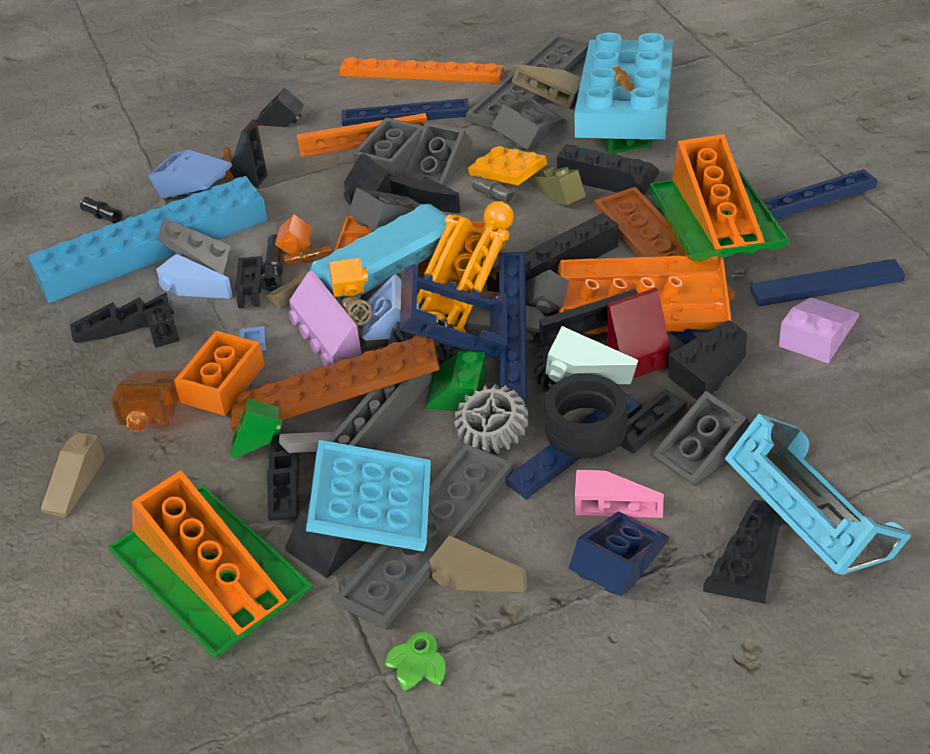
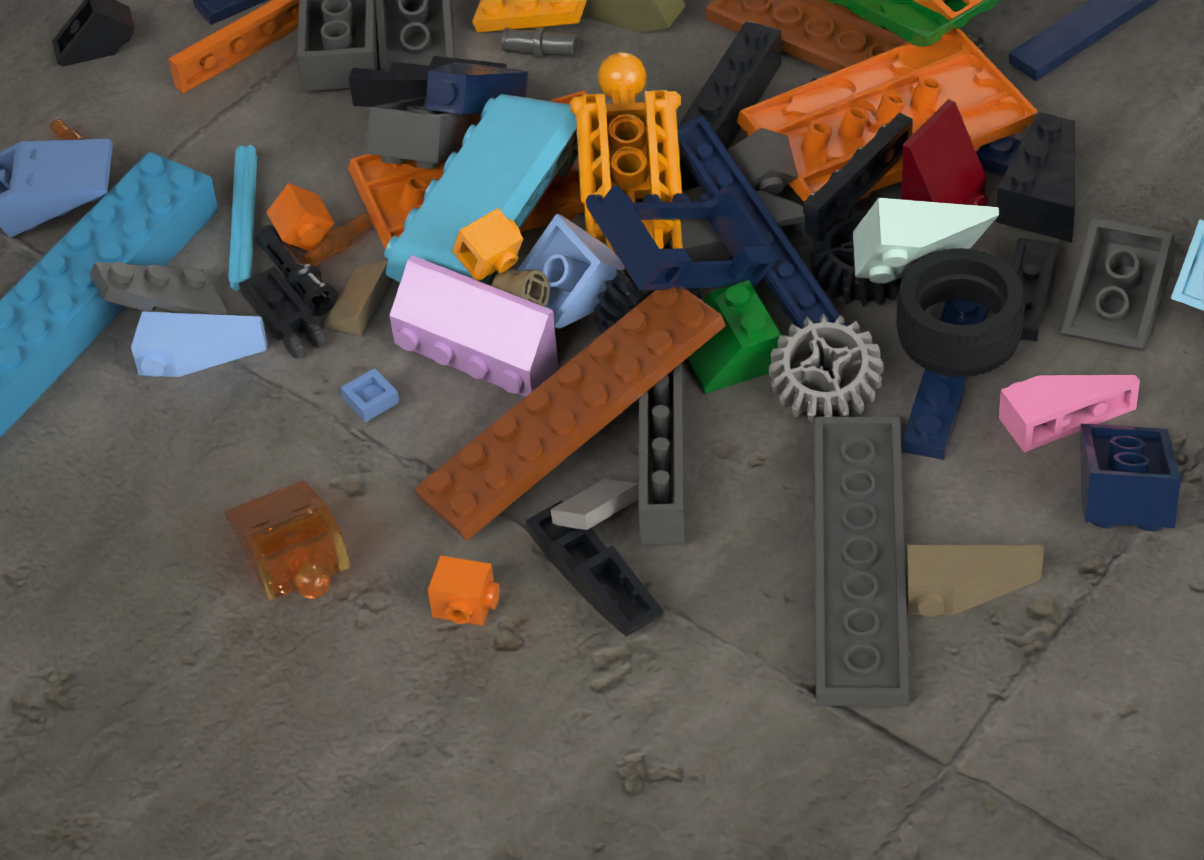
camera: 30 degrees left, 5 degrees up
(72, 473) = (270, 699): dark tan slope -> none
(115, 321) = (121, 451): black slope -> none
(161, 325) = (210, 429): black brick -> none
(205, 564) = (594, 736): piece -> none
(207, 459) = (462, 590): none -> orange brick
(219, 372) = (374, 461): orange brick -> none
(249, 156) = (127, 120): black slope -> none
(255, 427) = (502, 517): green slope -> none
(272, 227) = (242, 216): none -> medium azure axle
(317, 550) = (727, 620): black slope -> none
(366, 175) = (347, 93): black slope -> none
(370, 496) = (768, 536): medium azure plate -> none
(413, 193) = (468, 87): none -> dark blue slope
(416, 664) = (986, 730): bright green plate -> none
(816, 328) = (1141, 84): lavender slope -> none

